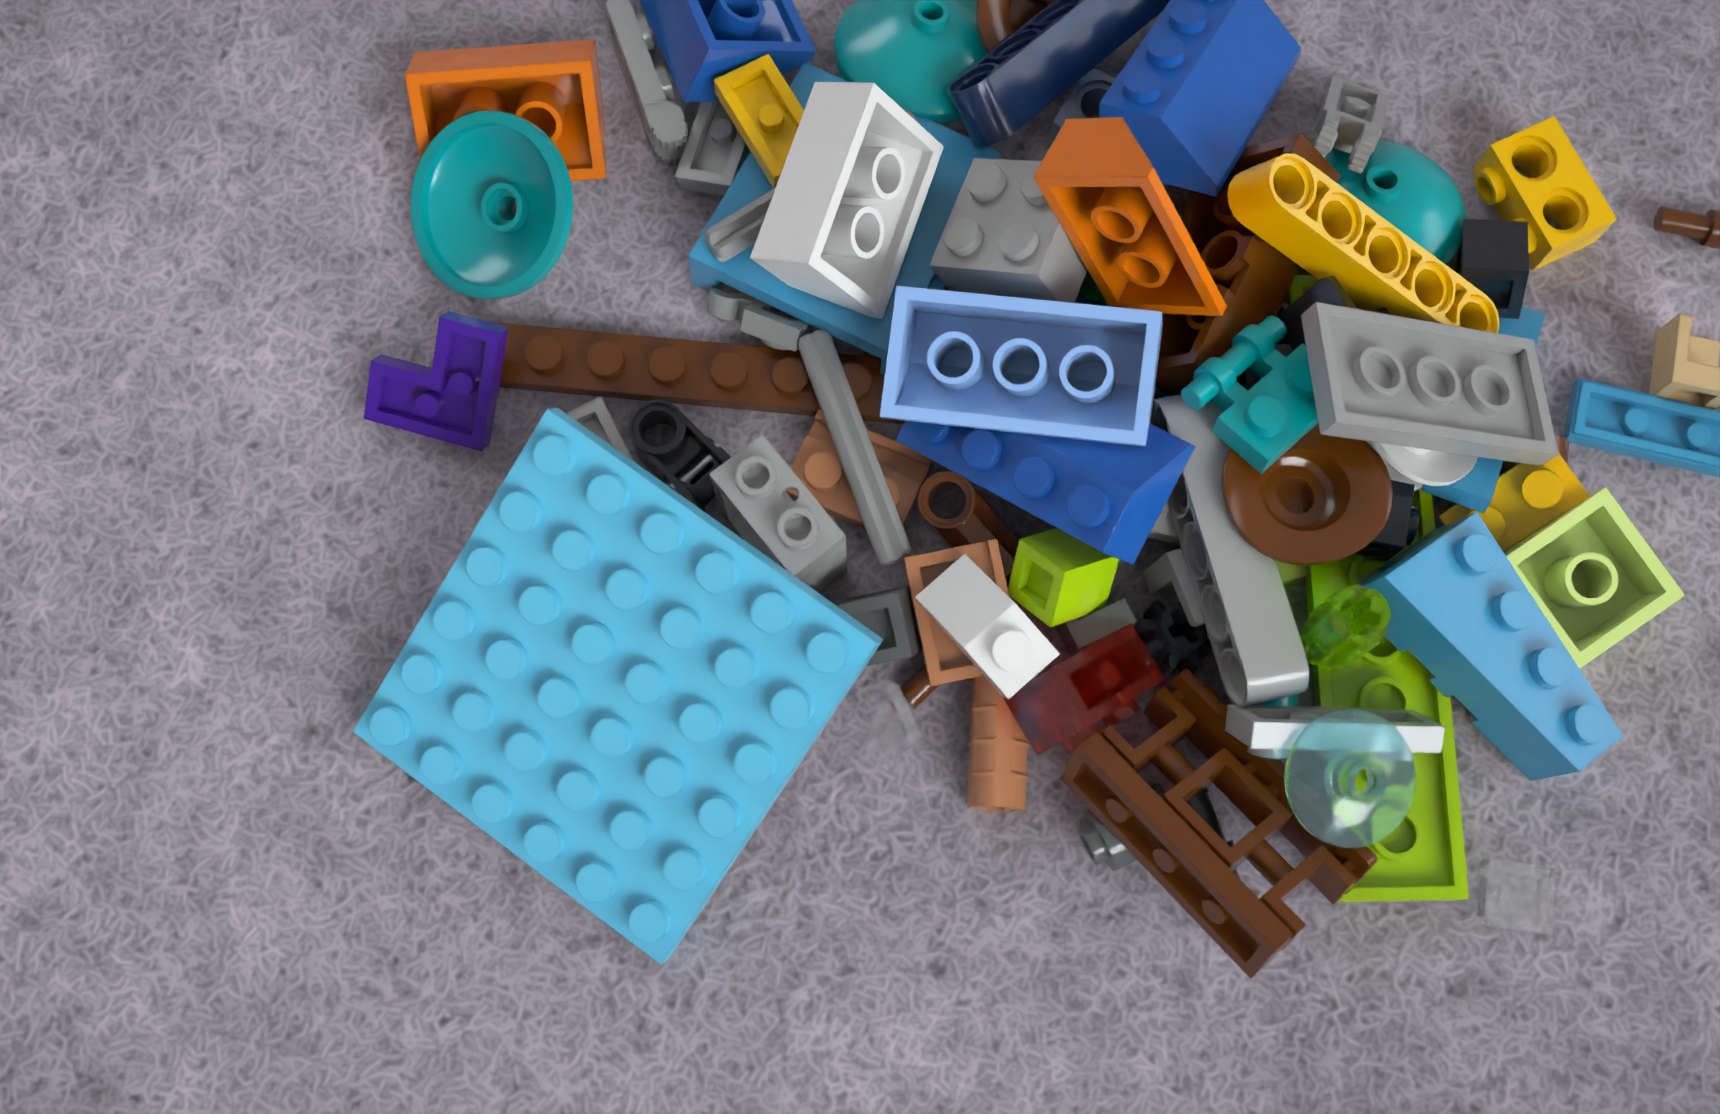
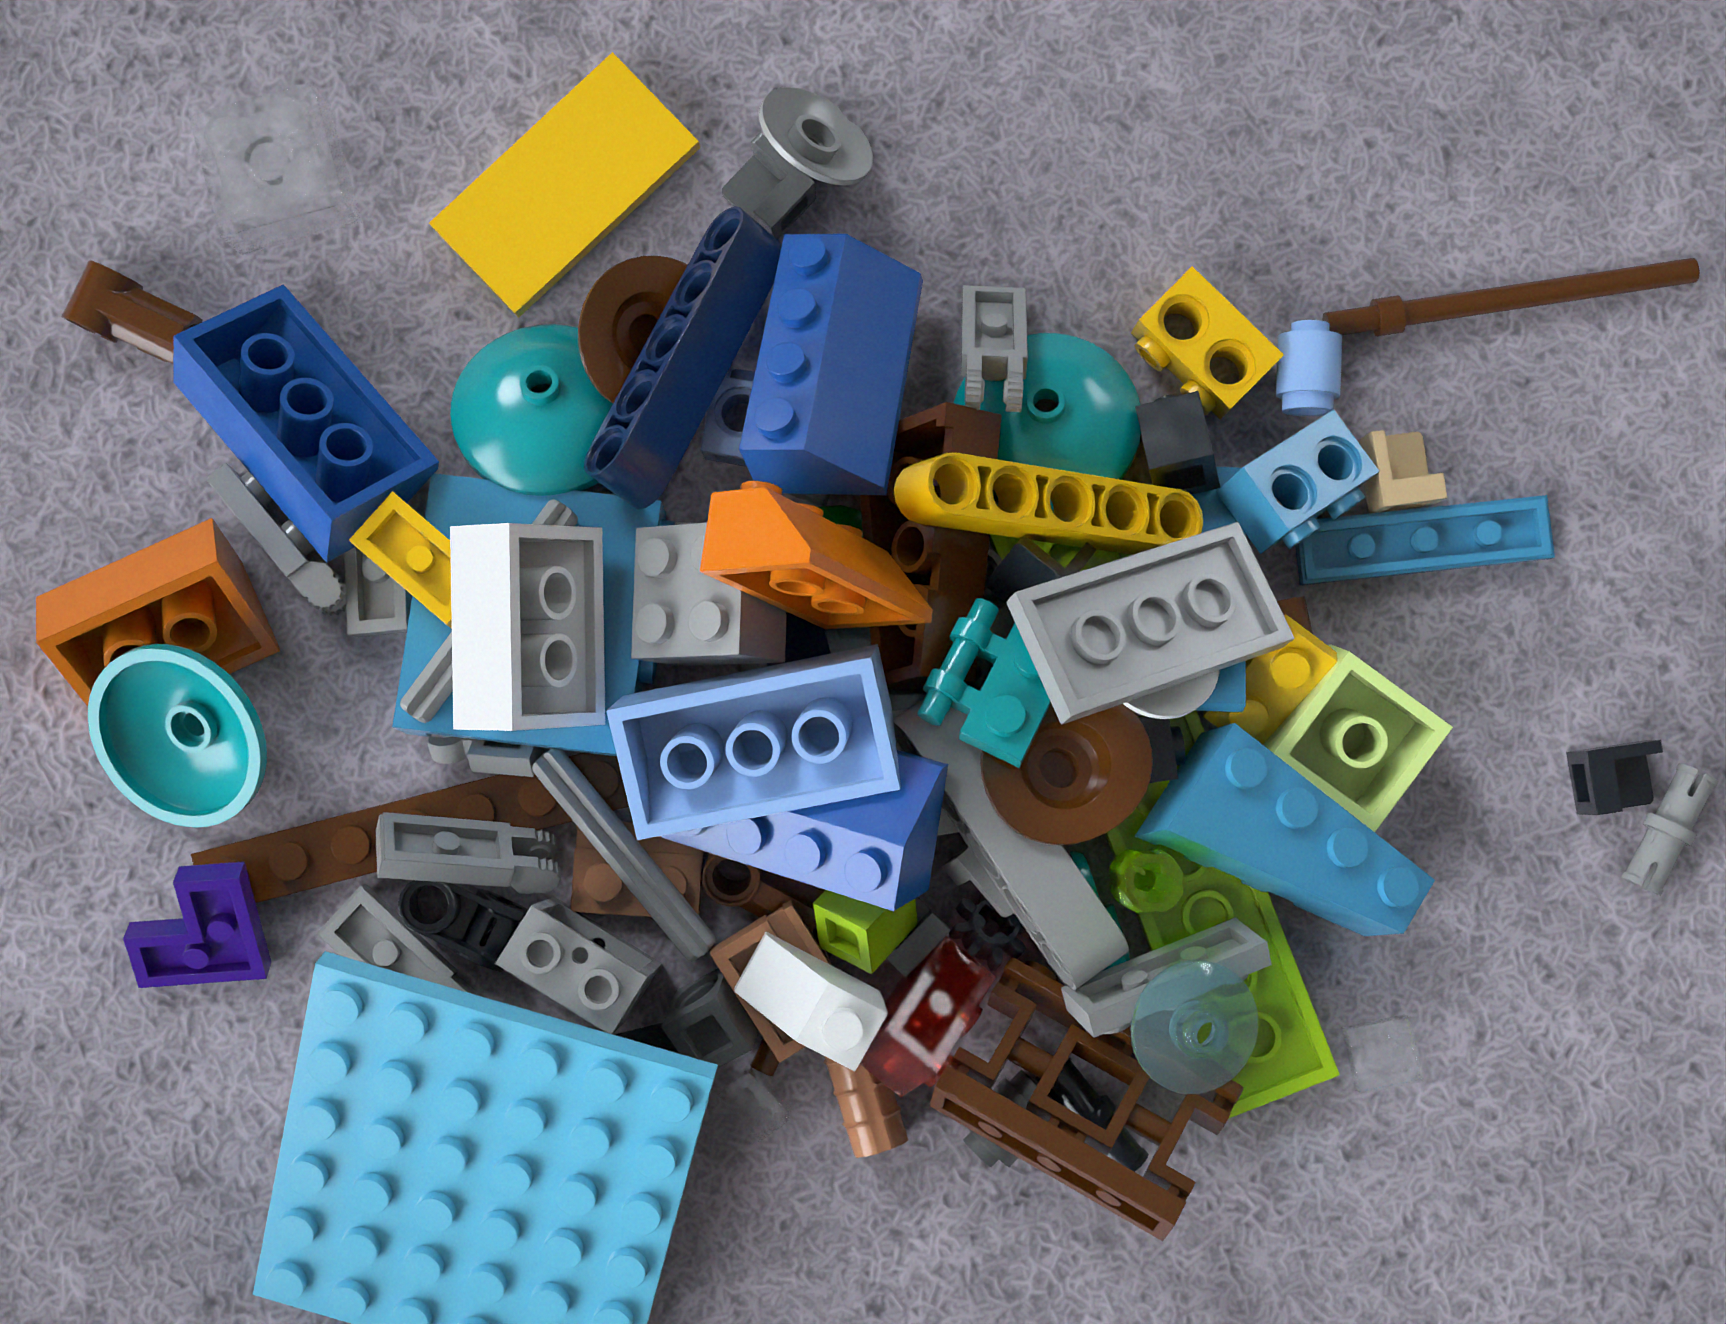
camera: 20 degrees left, 10 degrees up
(708, 391) = (466, 852): none -> light grey hinge
(1597, 335) = (1296, 479): none -> dark azure brick
(1633, 248) = (1310, 368): none -> light blue brick

